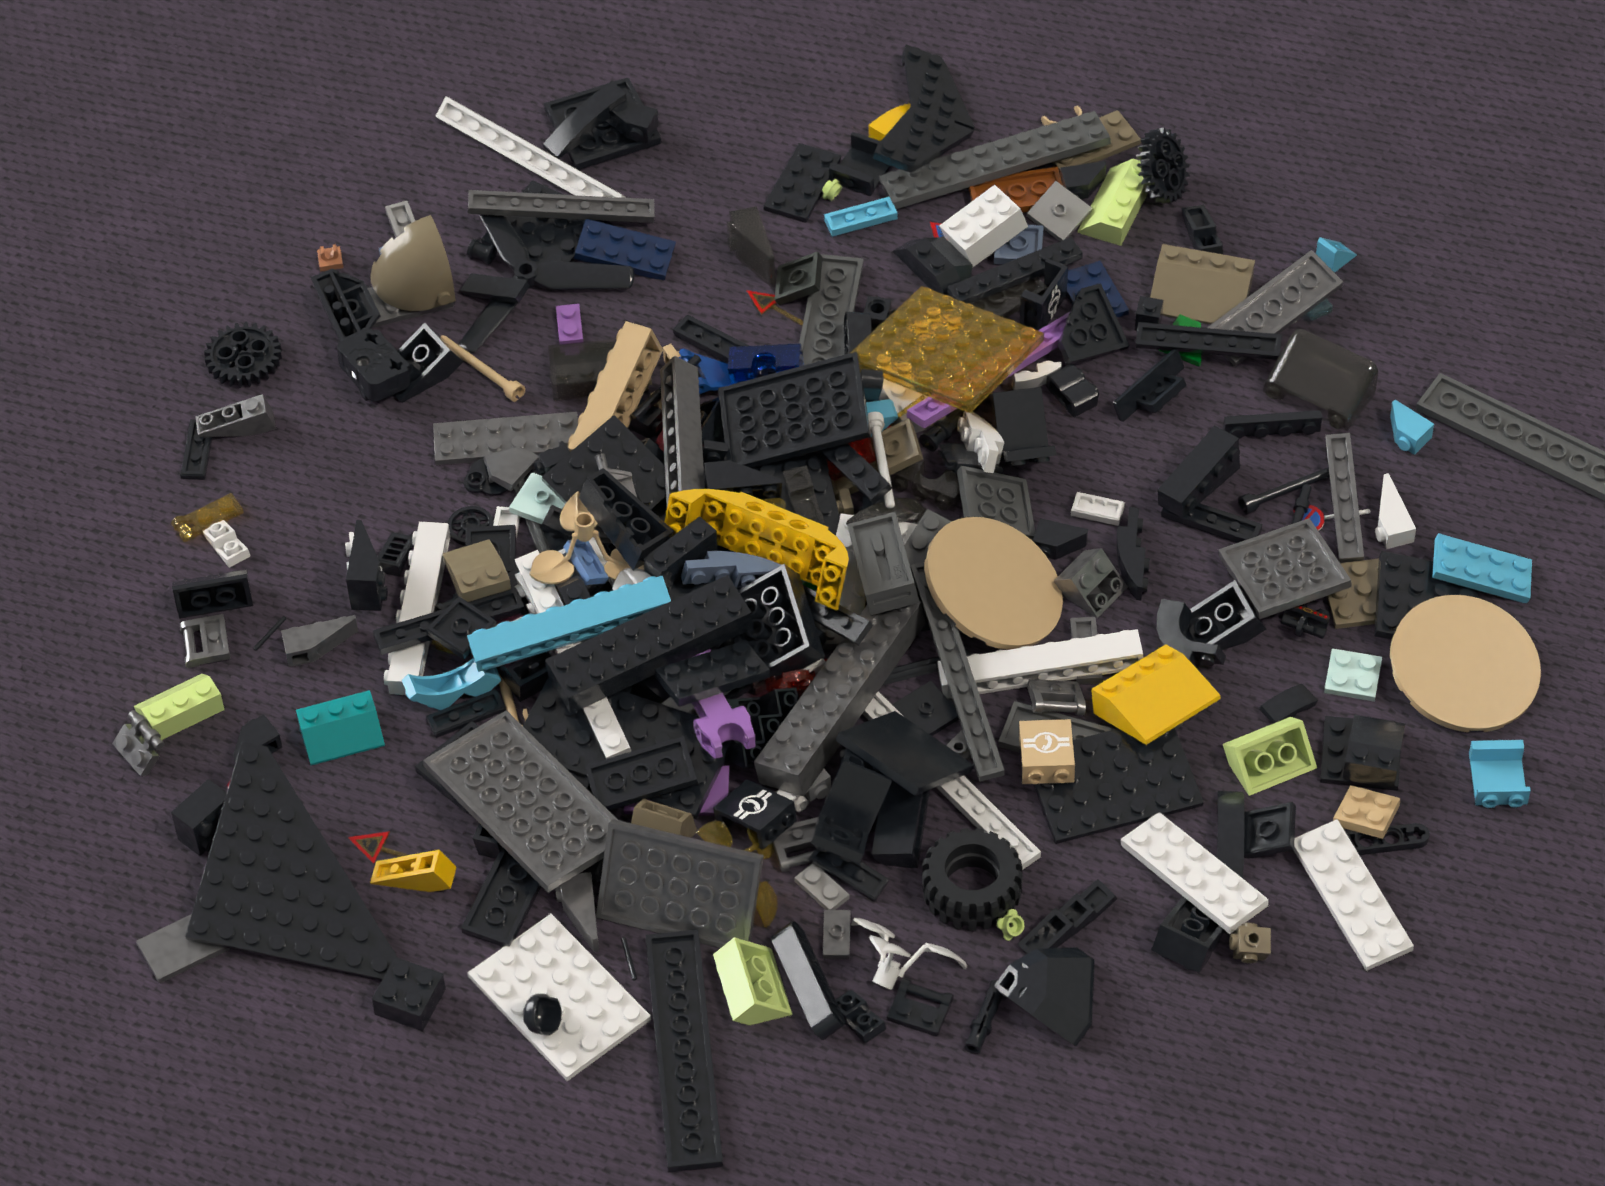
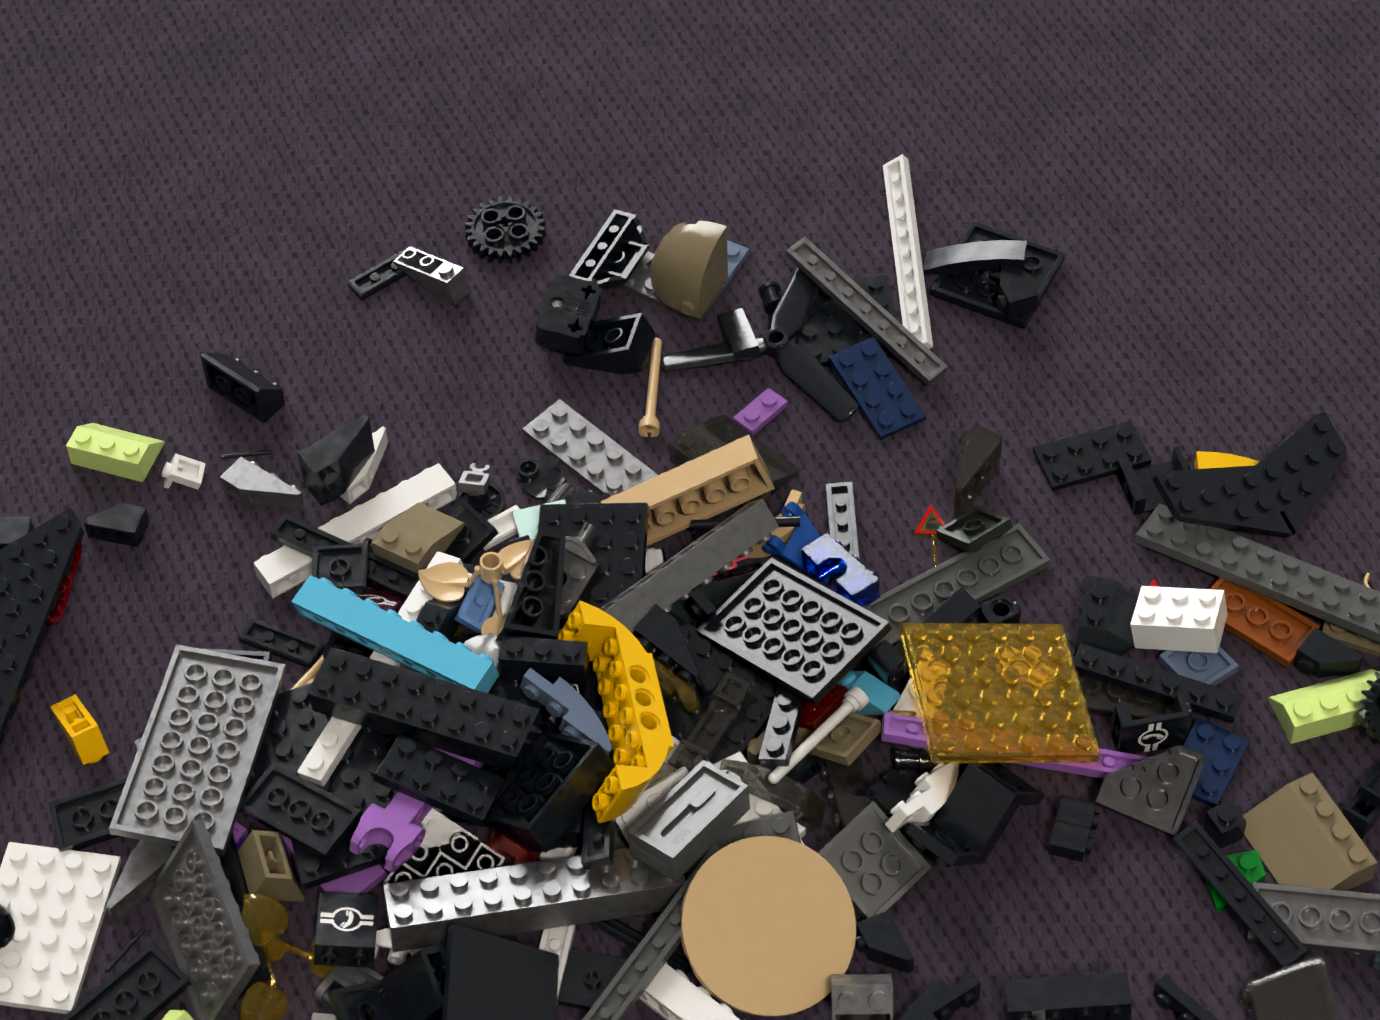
camera: 50 degrees right, 0 degrees up
(135, 748) = (49, 451): flat silver plate -> none
(202, 518) = (322, 329): clear yellow plate -> none
(213, 640) = (201, 422): flat silver plate -> none
(226, 543) = (308, 360): white slope -> none
(247, 676) = (183, 471): none -> white bracket
(330, 258) = (663, 210): nougat tile -> none
(340, 727) = (184, 568): teal slope -> none
(373, 844) = (90, 679): piece -> none
(395, 567) = (383, 470): black slope -> none
(399, 216) = (749, 225): light grey plate -> none
(444, 689) = (276, 606): medium azure arch -> none
(455, 514) = (475, 481): none -> flat silver plate
(509, 466) = (558, 480): flat silver slope -> none
(831, 189) = (1104, 480): yellowish green plate -> none
(860, 216) = (1098, 523): medium azure plate -> none
(1035, 379) = (1047, 784): white slope -> none
(1059, 211) = (1267, 666): light grey plate -> none
(1097, 508) = (956, 950): white plate -> none
(1153, 388) = (1144, 892): black bracket -> none

